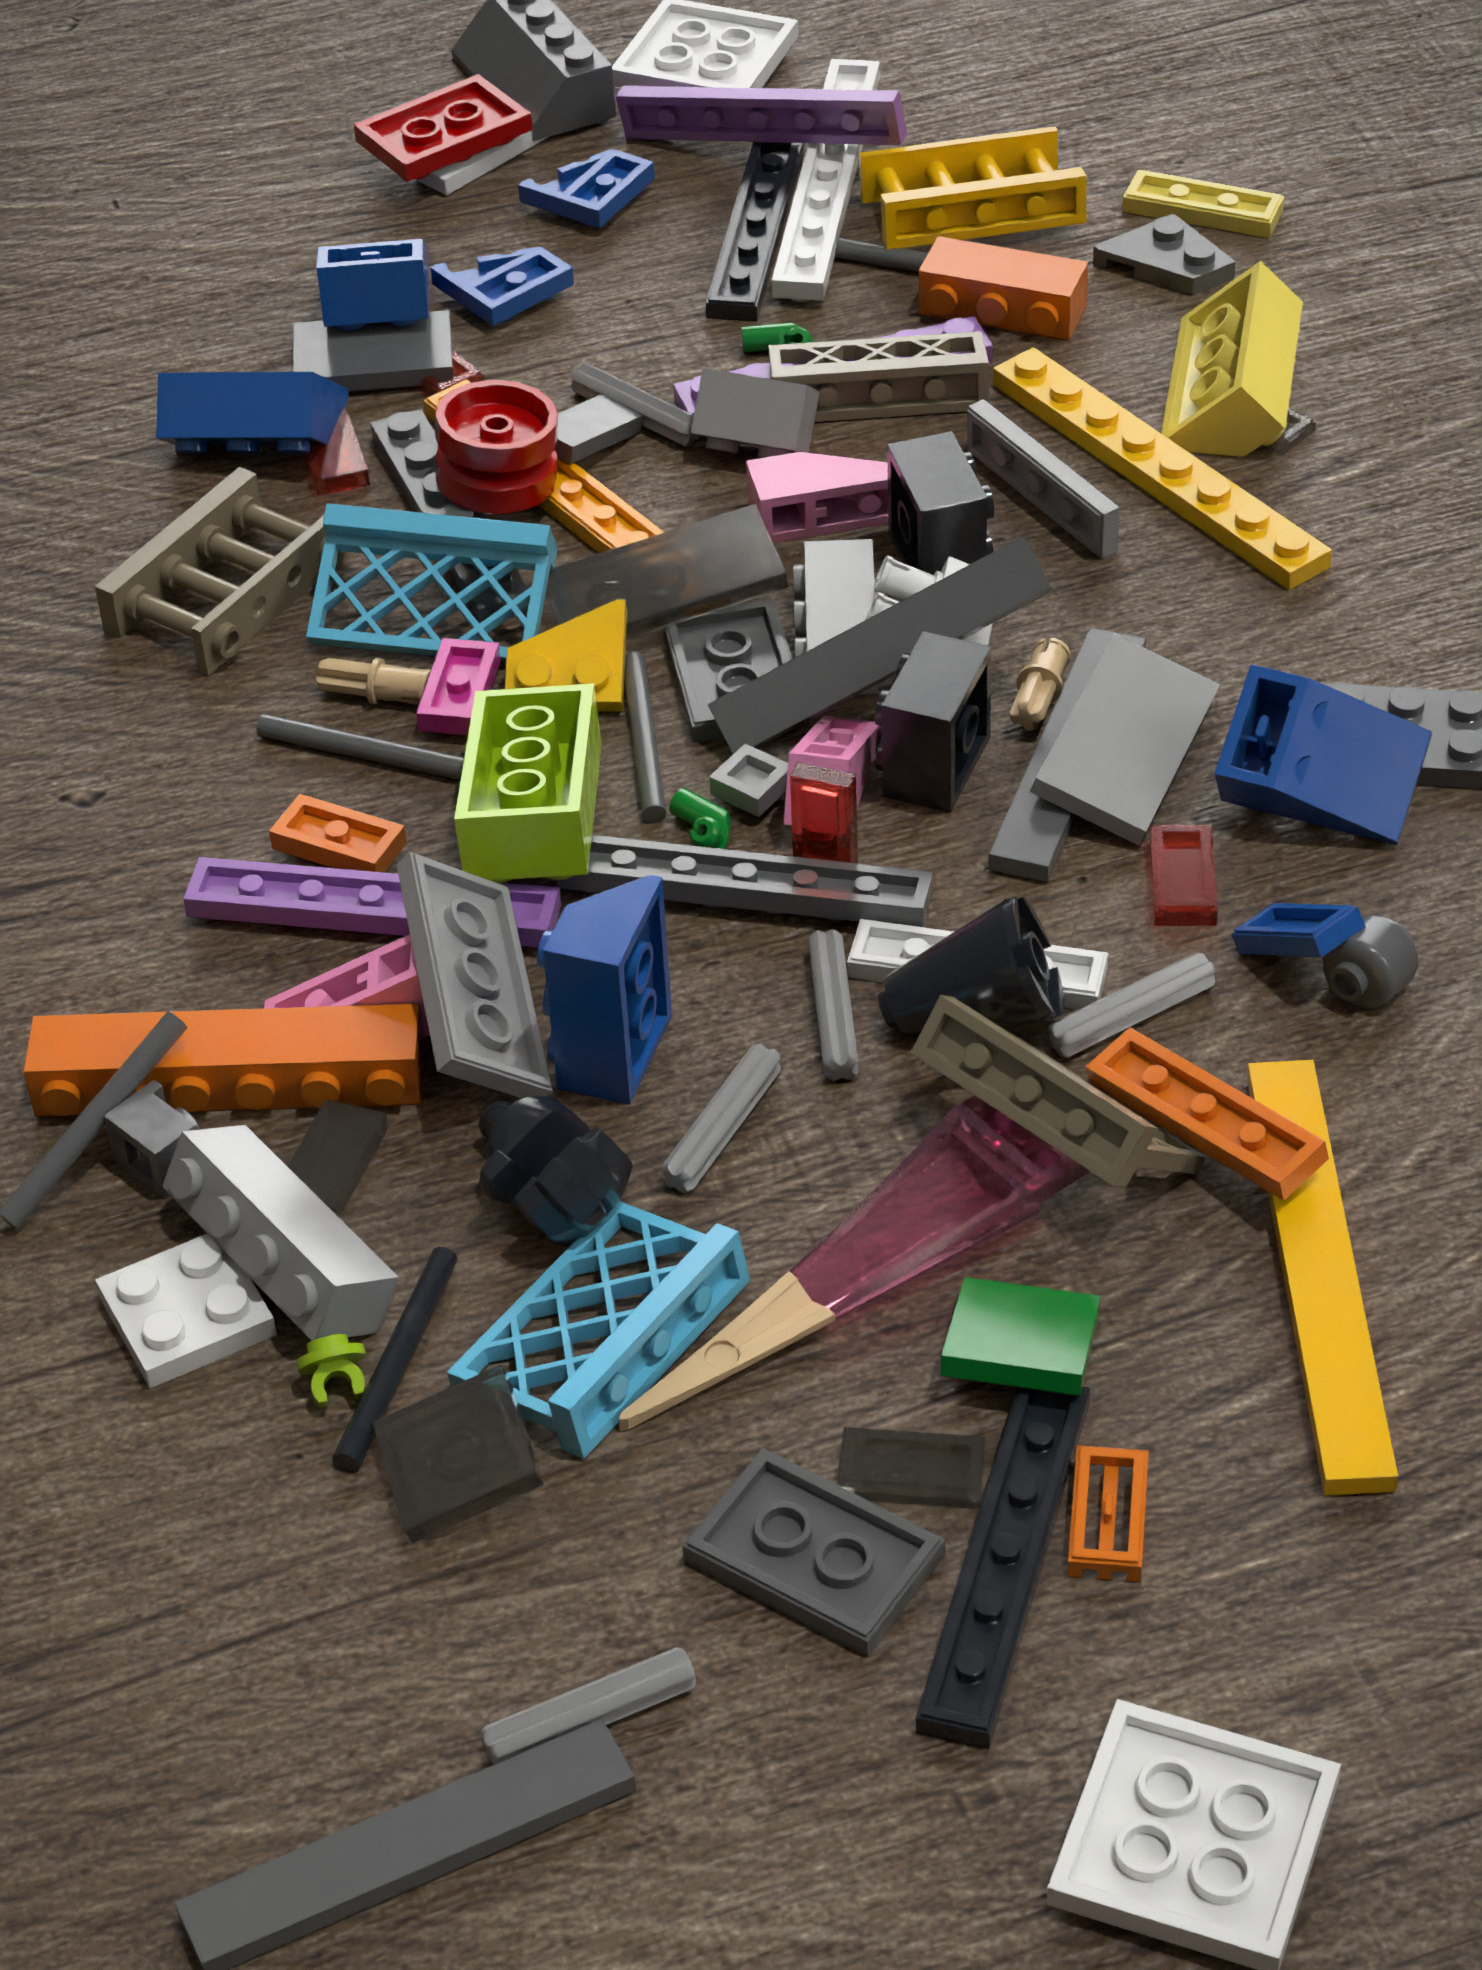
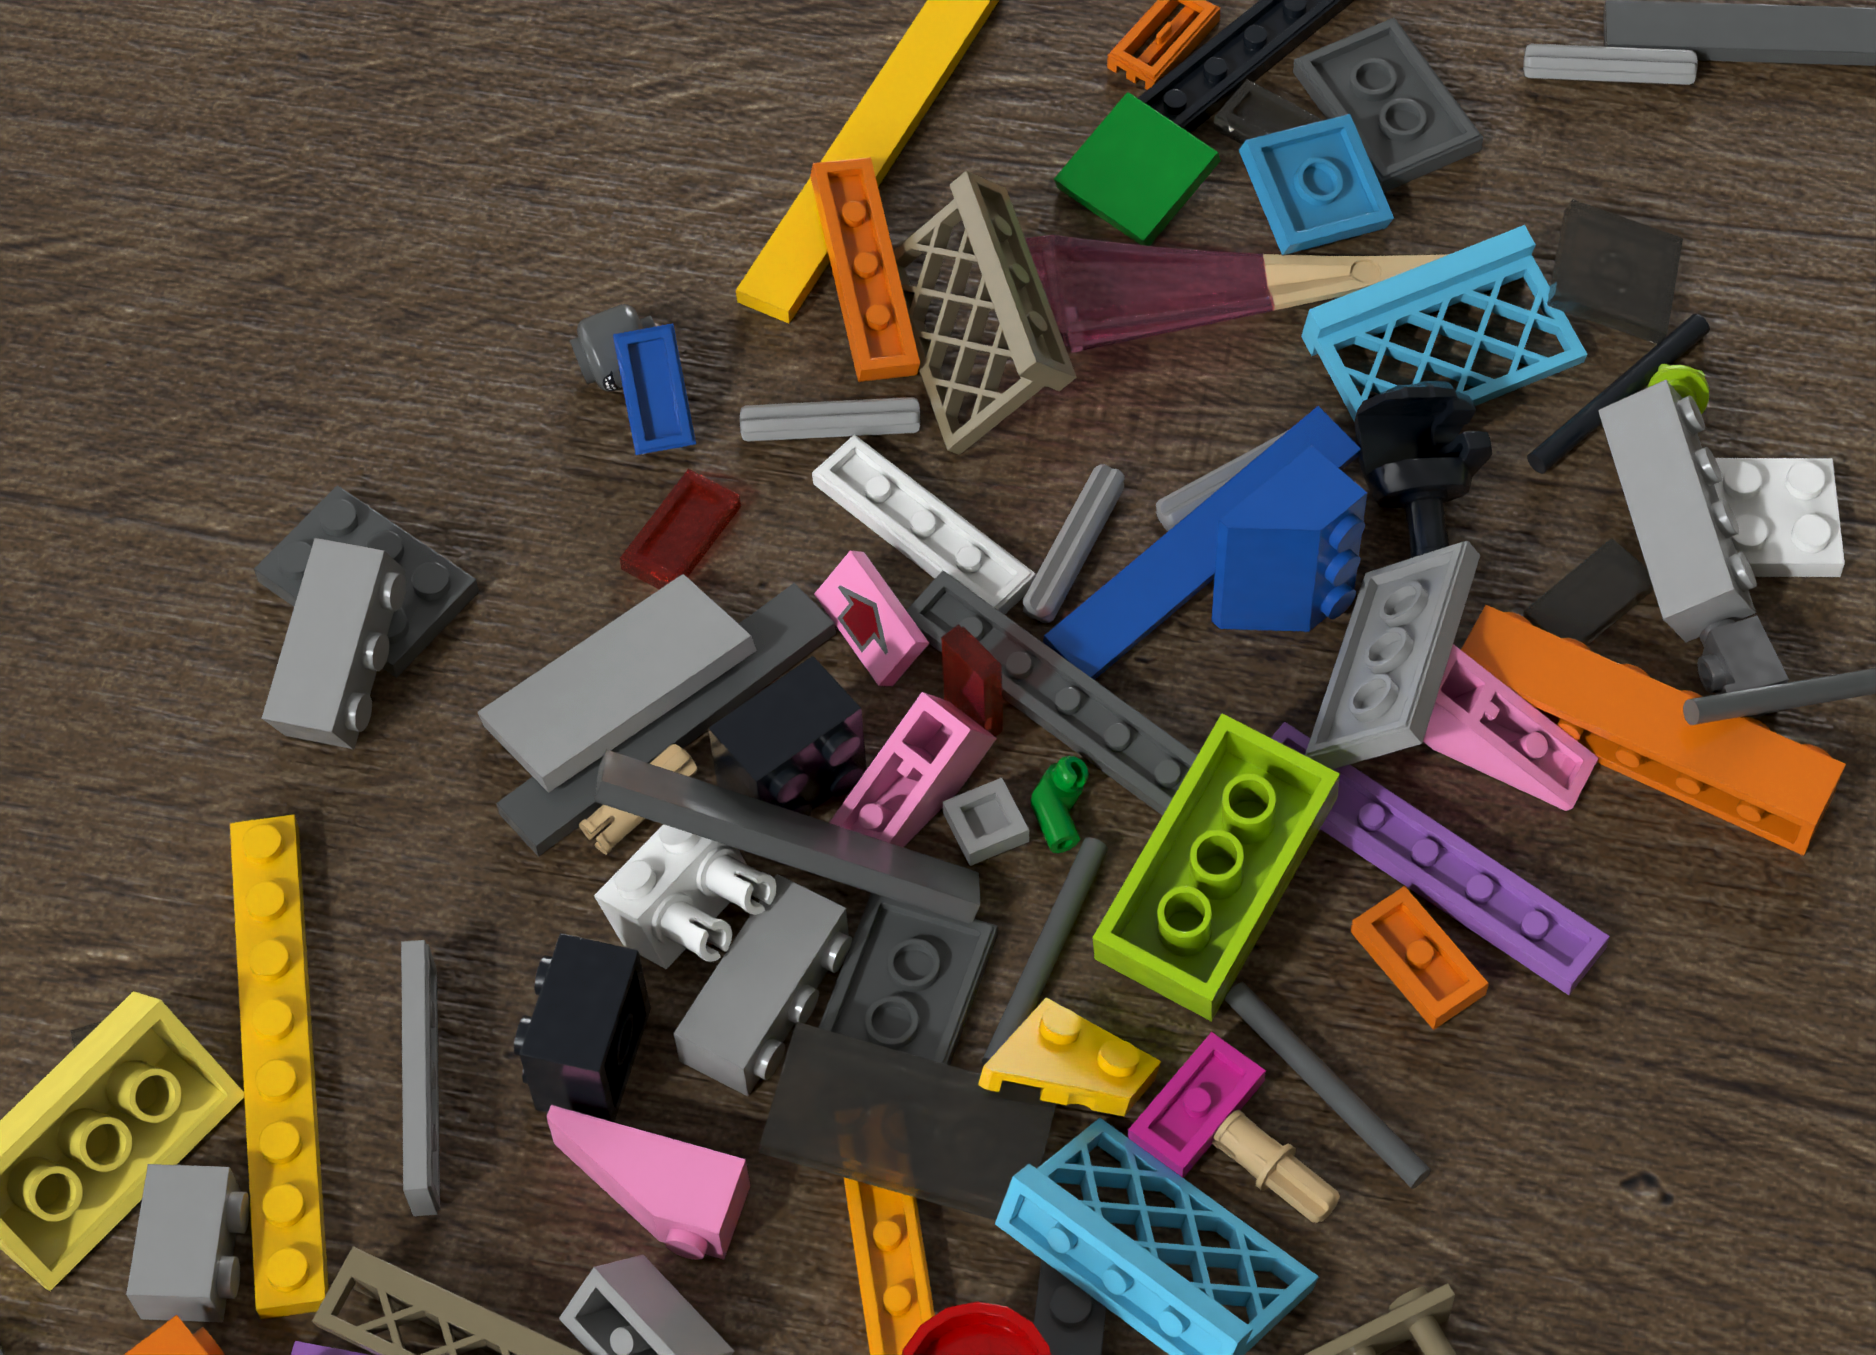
camera: 150 degrees left, 15 degrees up
(708, 1036) = (1181, 559): none -> blue tile
(821, 1385) = (1316, 184): none -> dark azure plate
(958, 865) = (871, 618): none -> bright pink tile
(988, 965) = (959, 456): black cone -> none
(1111, 349) = (187, 1243): none -> light grey brick
(1320, 756) = (495, 546): blue slope -> none
(1363, 643) = (335, 643): none -> light grey brick

